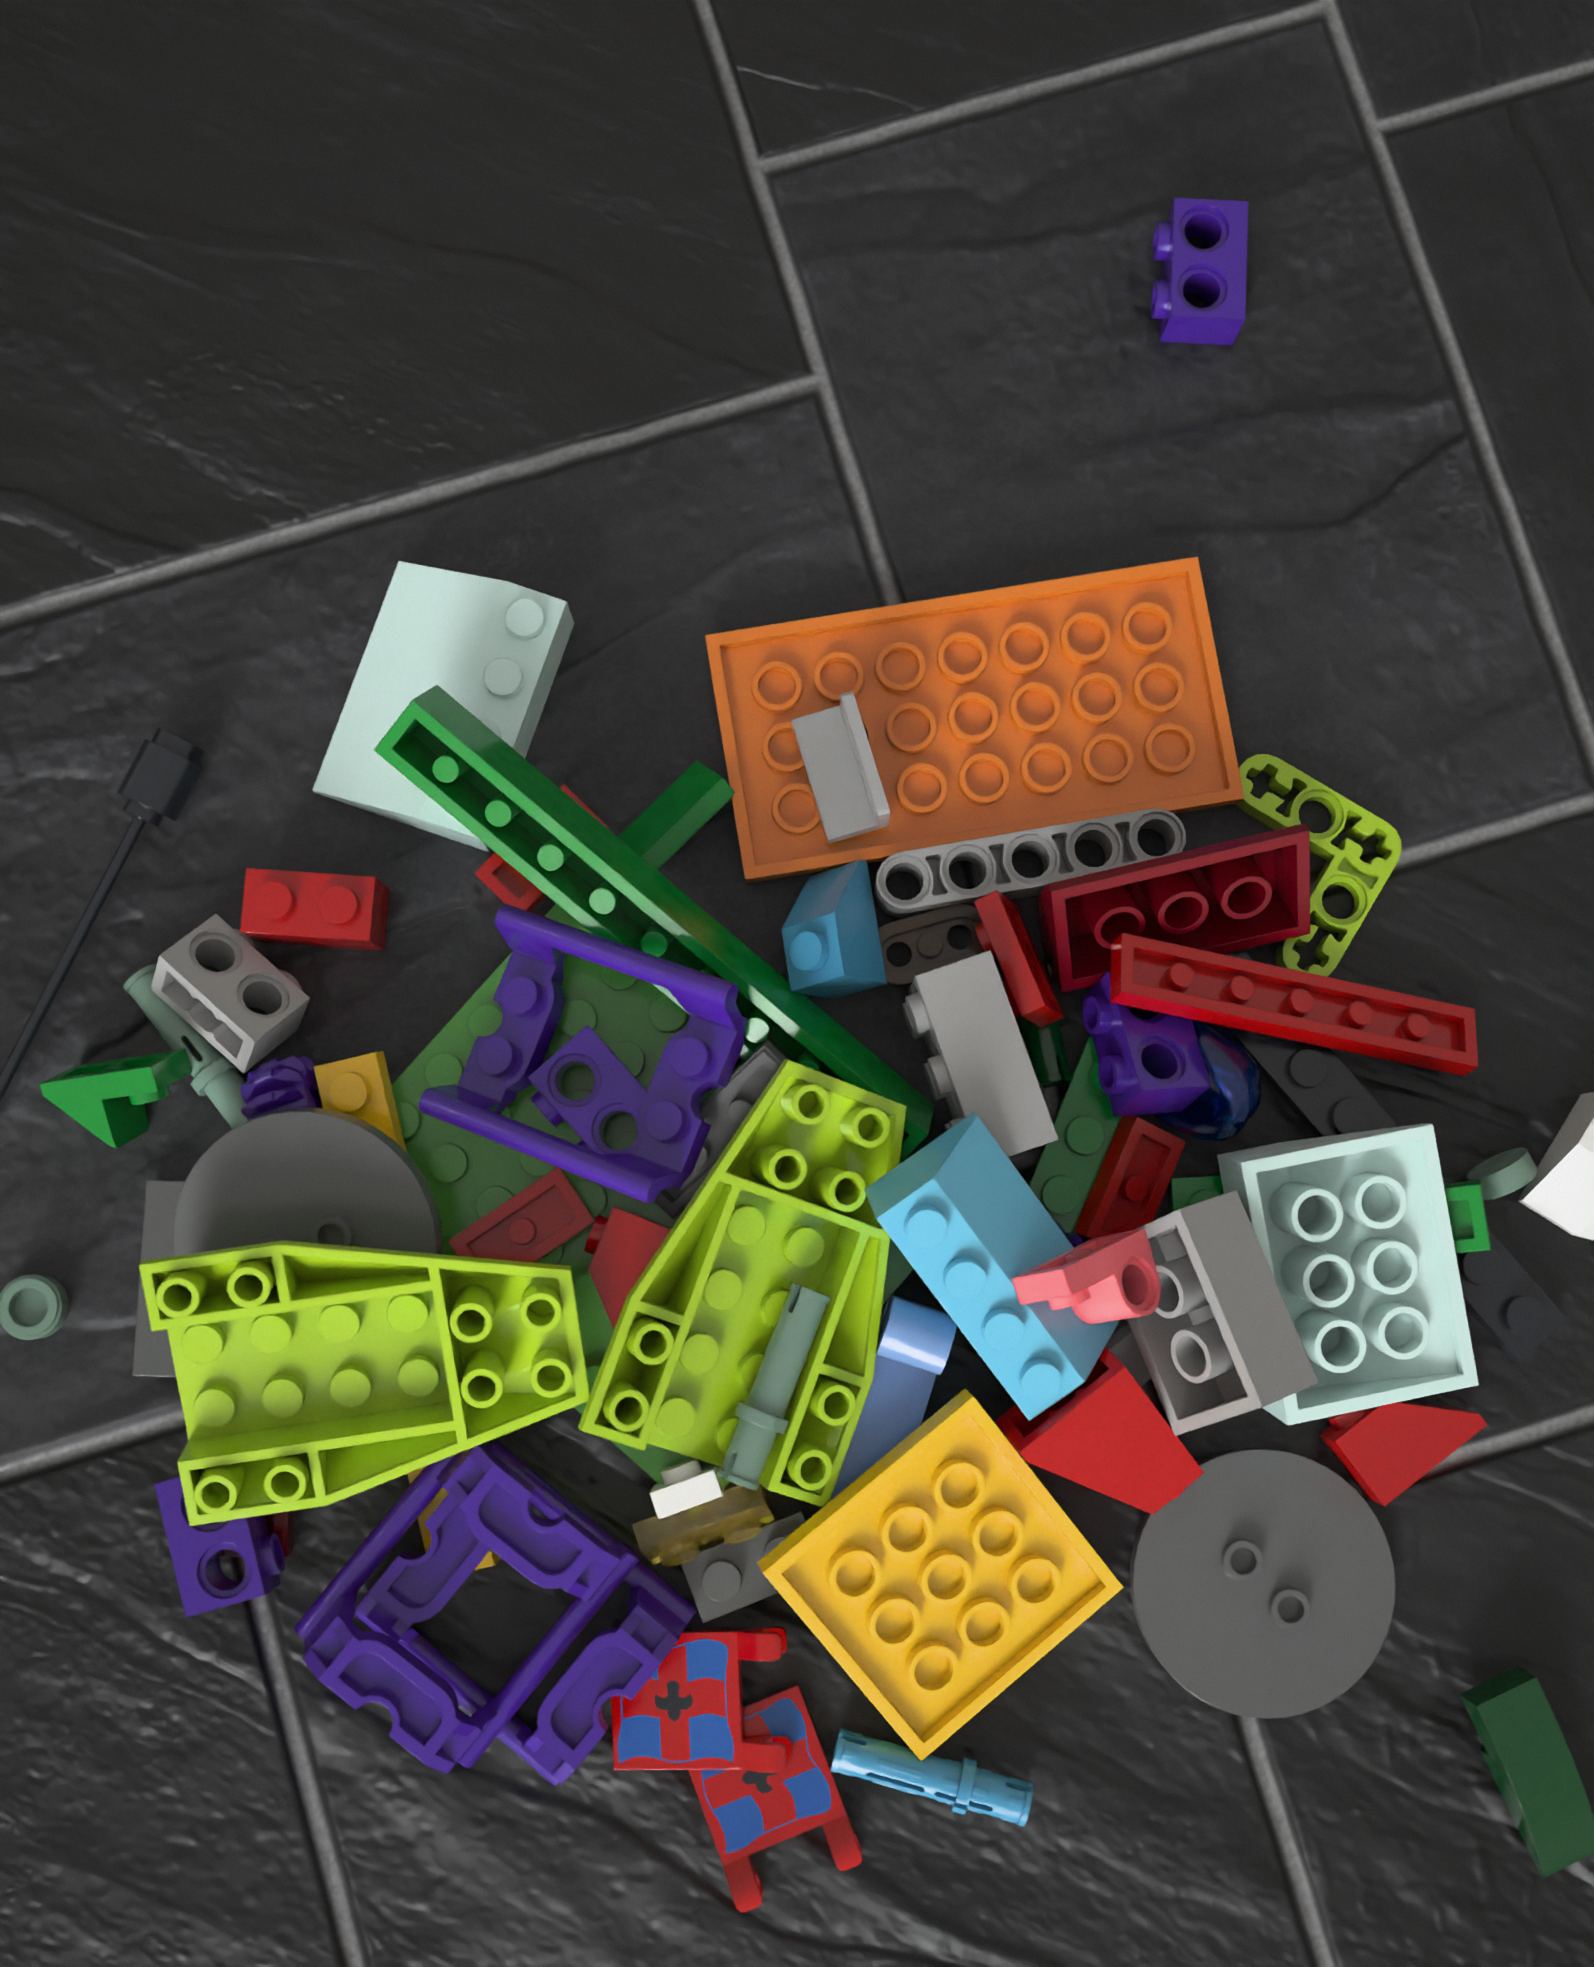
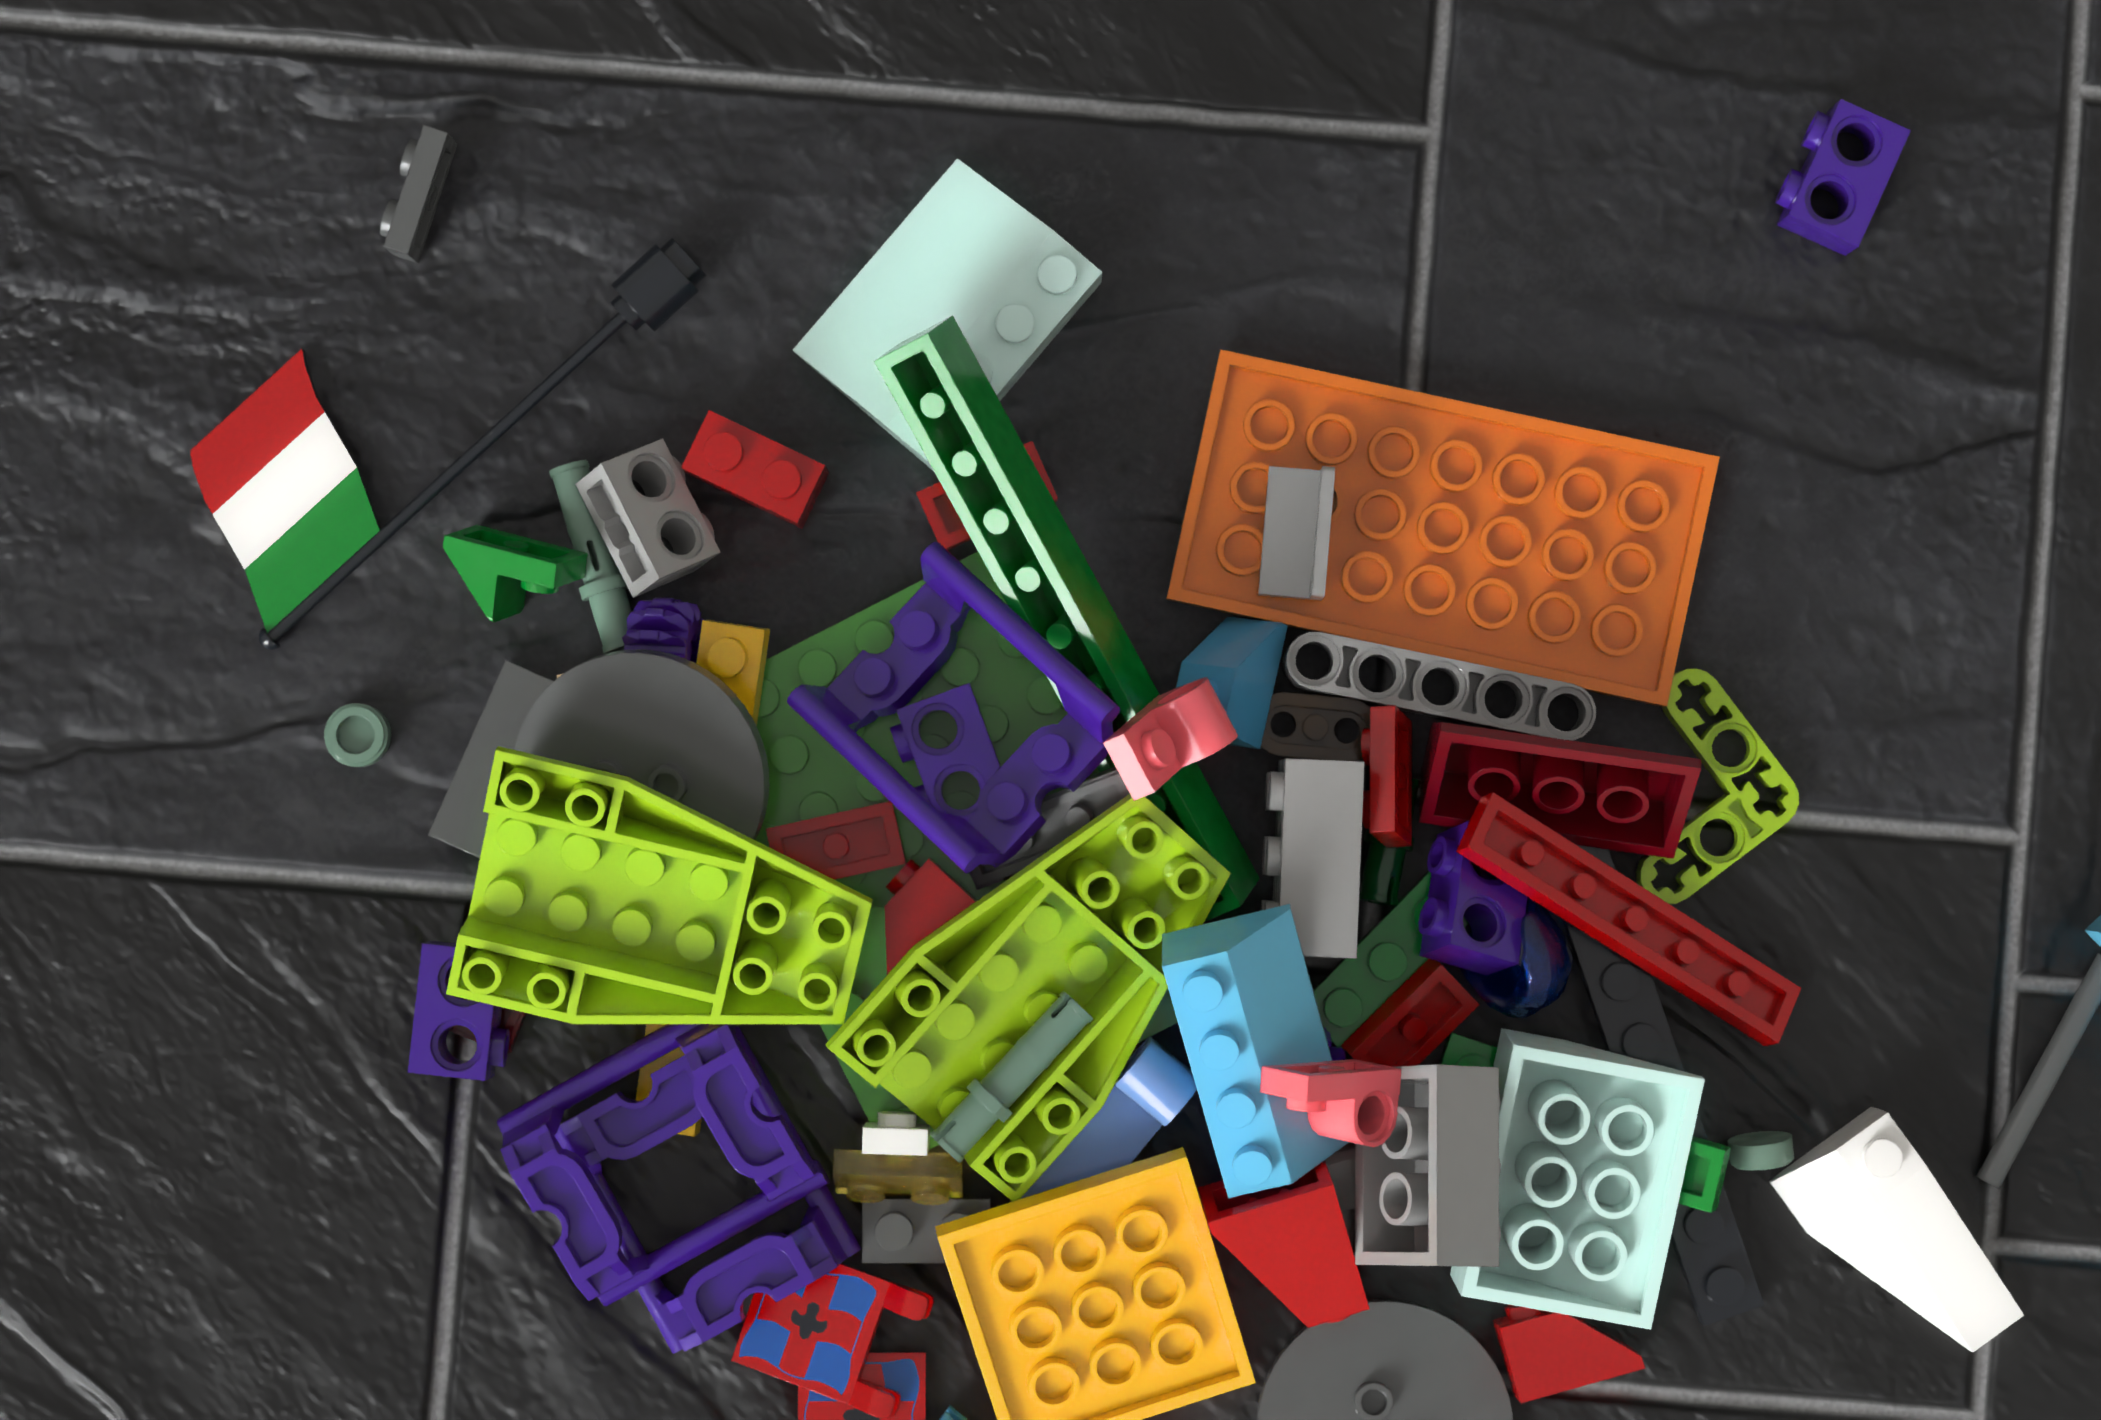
camera: 25 degrees right, 5 degrees up
(677, 814) = (1125, 511): green tile -> none
(796, 997) = (1169, 735): none -> coral plate

